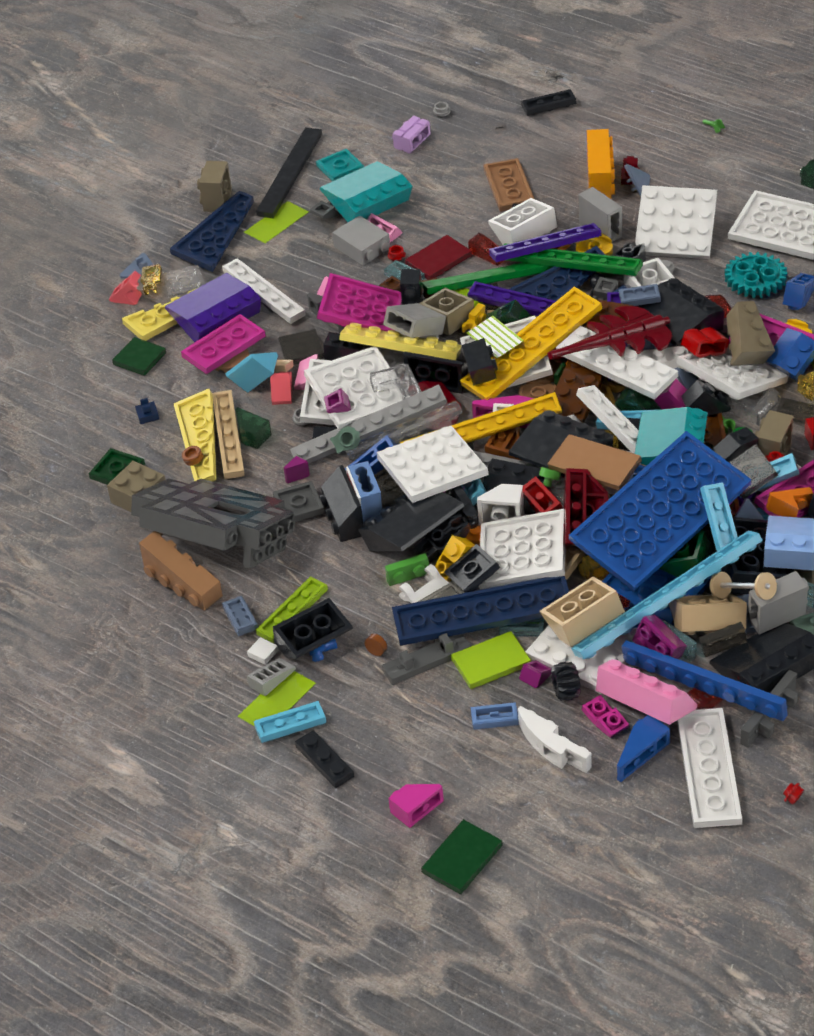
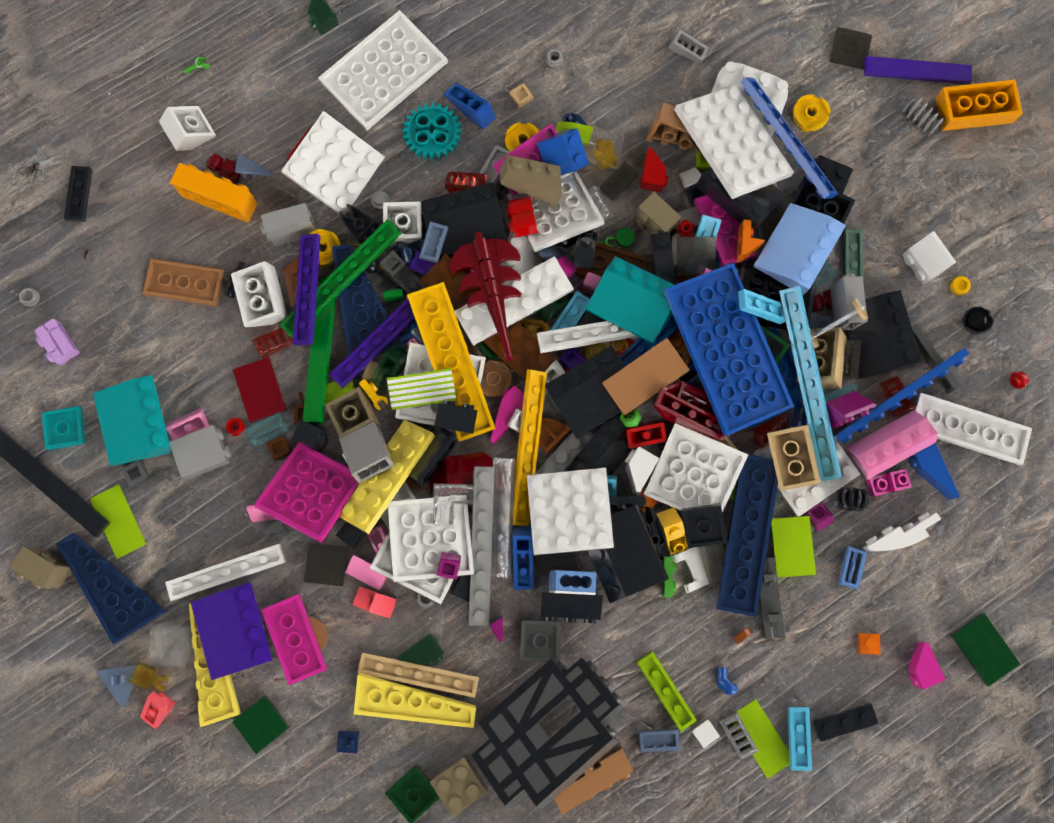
camera: 75 degrees left, 35 degrees up
(192, 455) = (440, 720): dark orange tile -> none
(253, 370) = (351, 622): medium azure slope -> none
(283, 366) = (348, 594): tan tile -> none
(310, 629) = (716, 686): black slope -> none
(346, 439) = (494, 573): sand green animal -> none
(418, 753) = (868, 643): none -> orange plate
(651, 135) = (186, 127): none -> white slope

